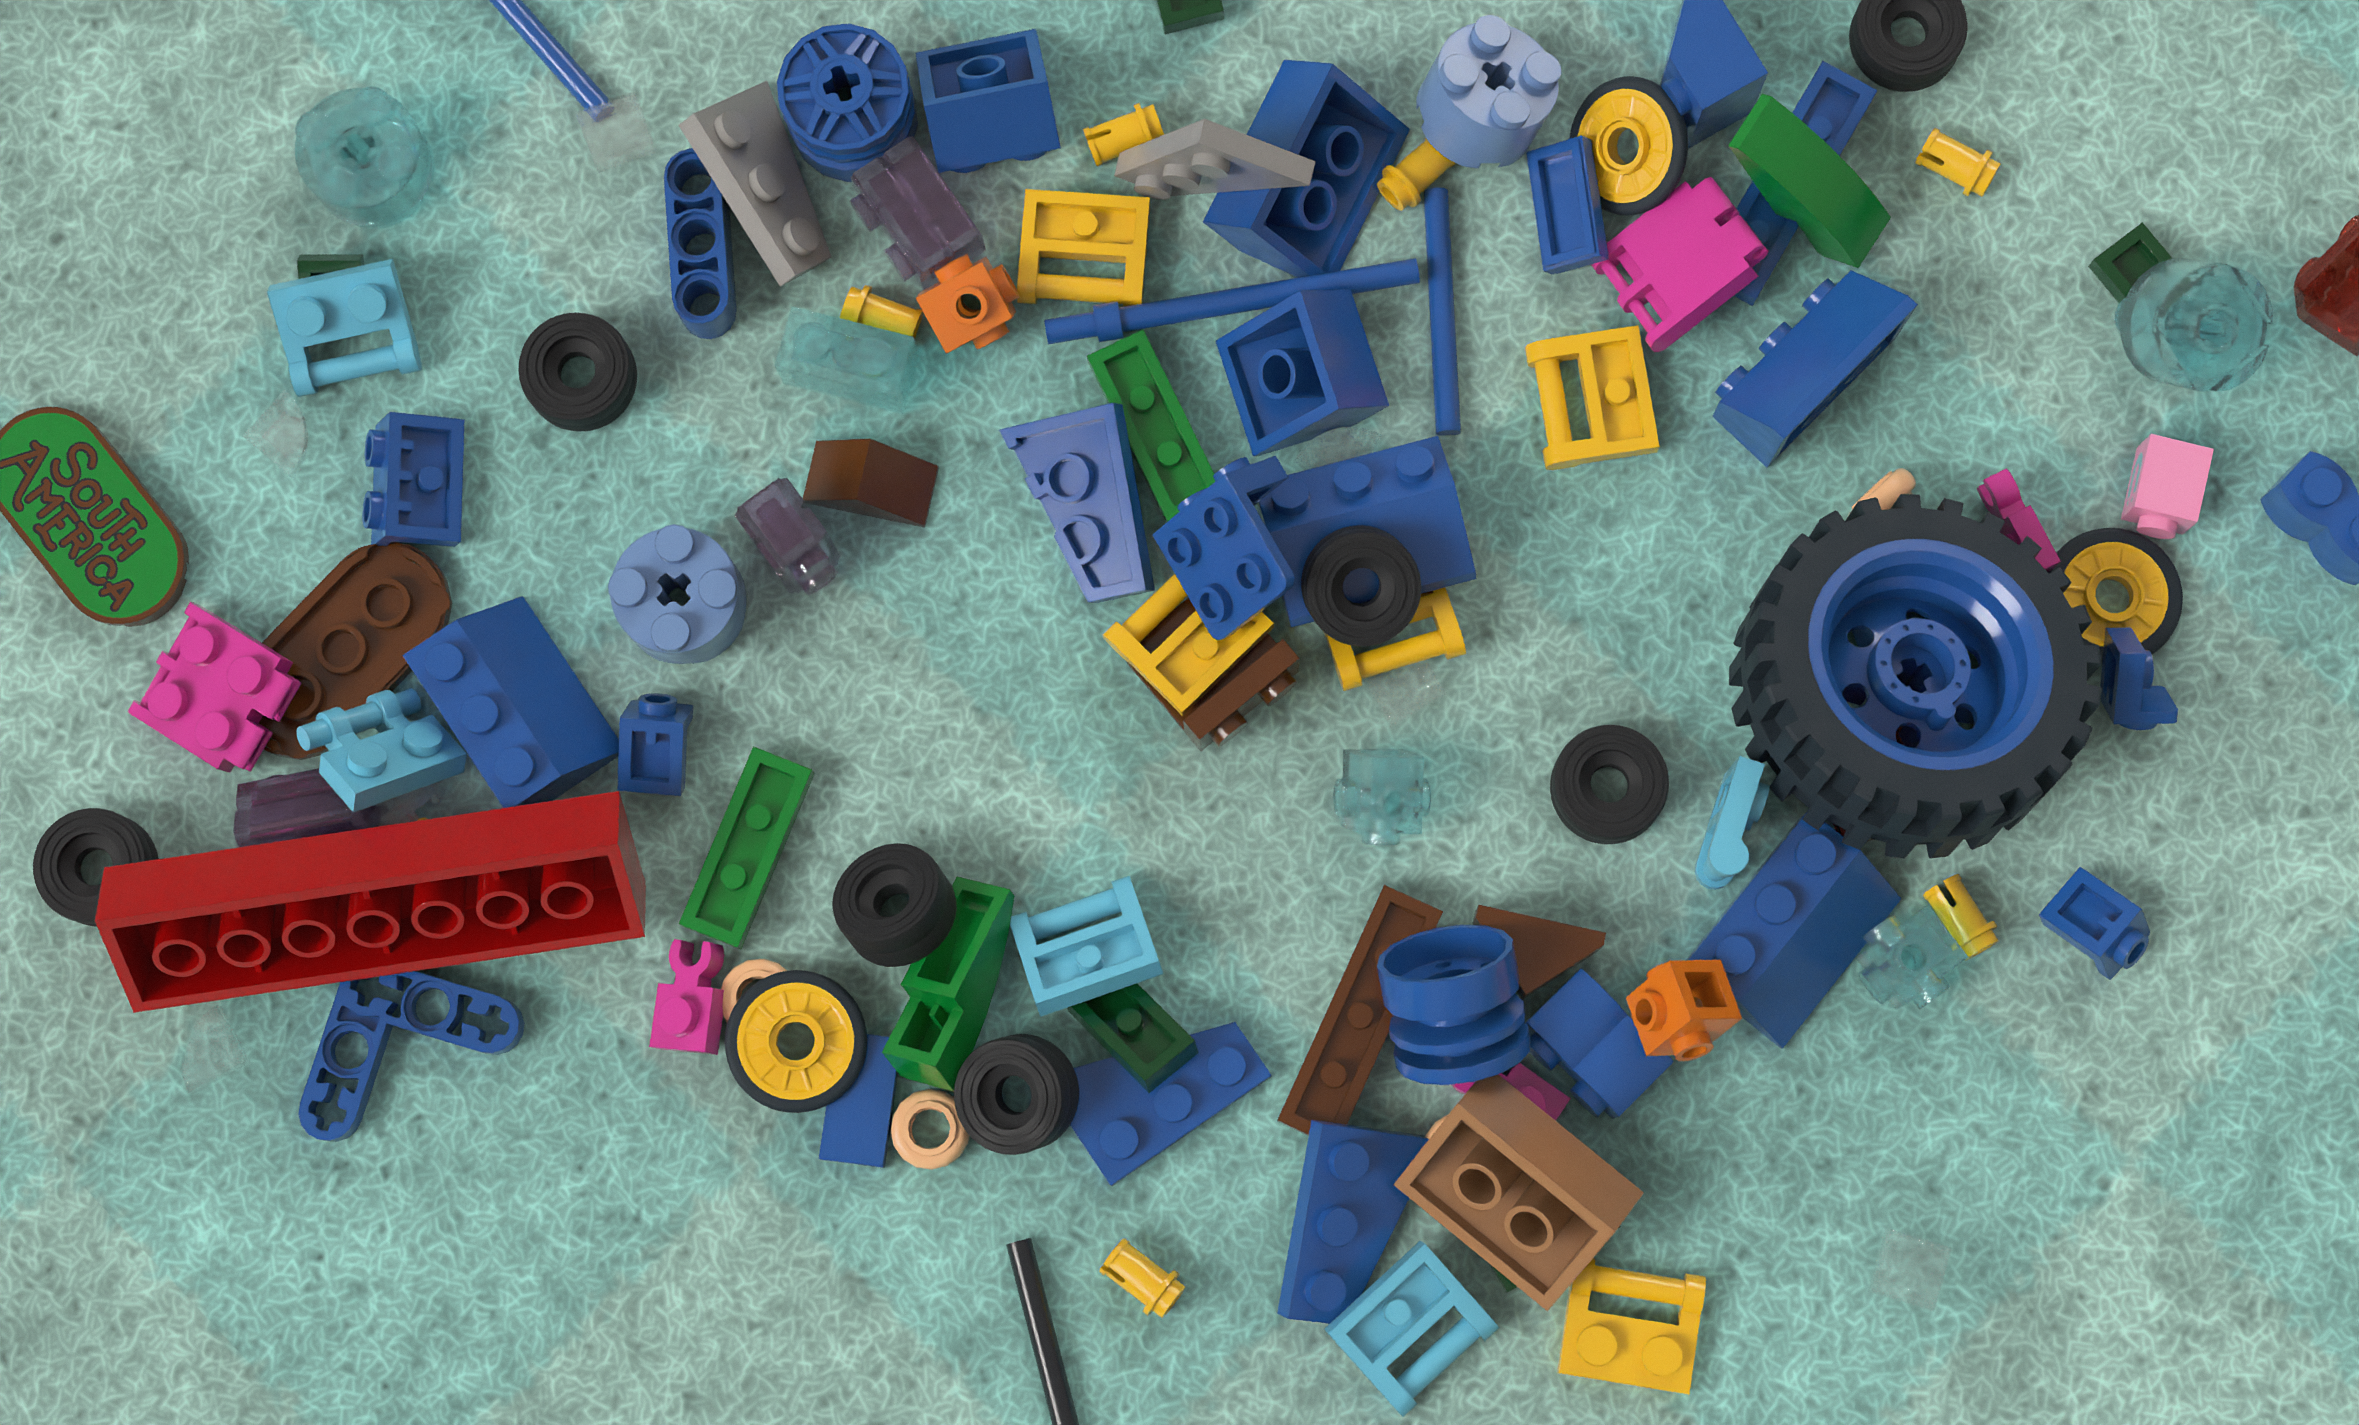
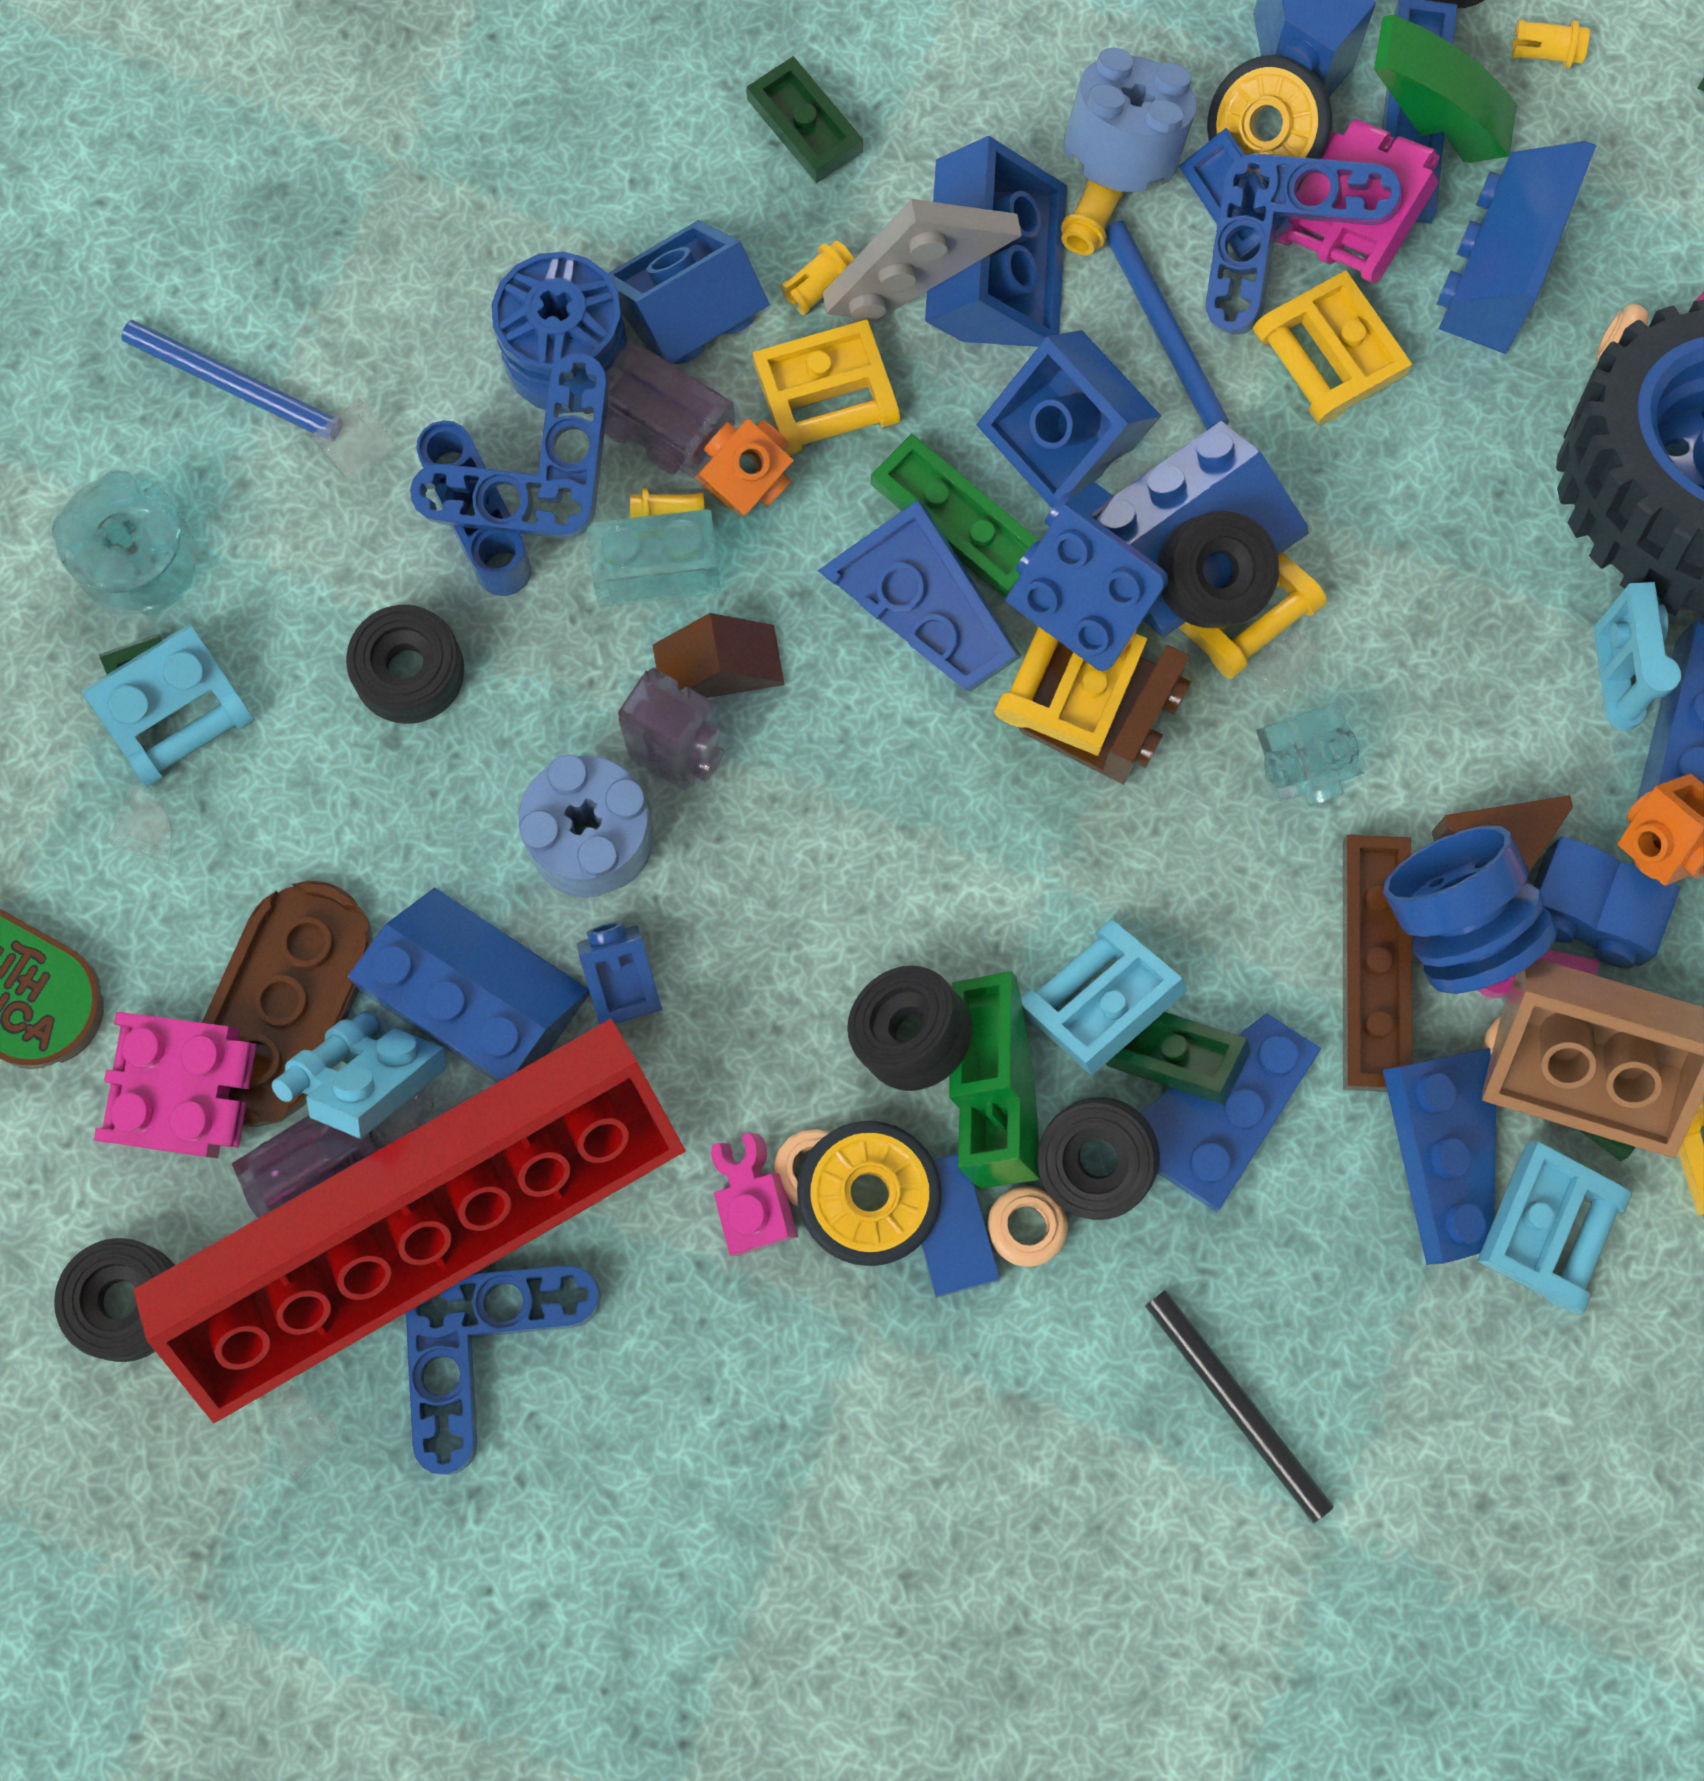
camera: 30 degrees left, 5 degrees down
(415, 480) = (289, 818): blue bracket -> none
(747, 848) = (745, 1034): green plate -> none
(760, 179) = (492, 418): light grey wing -> none
(776, 248) = (553, 475): none -> blue beam
(1111, 321) = (879, 437): blue bar -> none
(1143, 1278) = (1288, 1284): yellow pin -> none
(1594, 234) = (1281, 201): none -> blue beam
(1631, 755) = (1527, 646): black tyre -> none

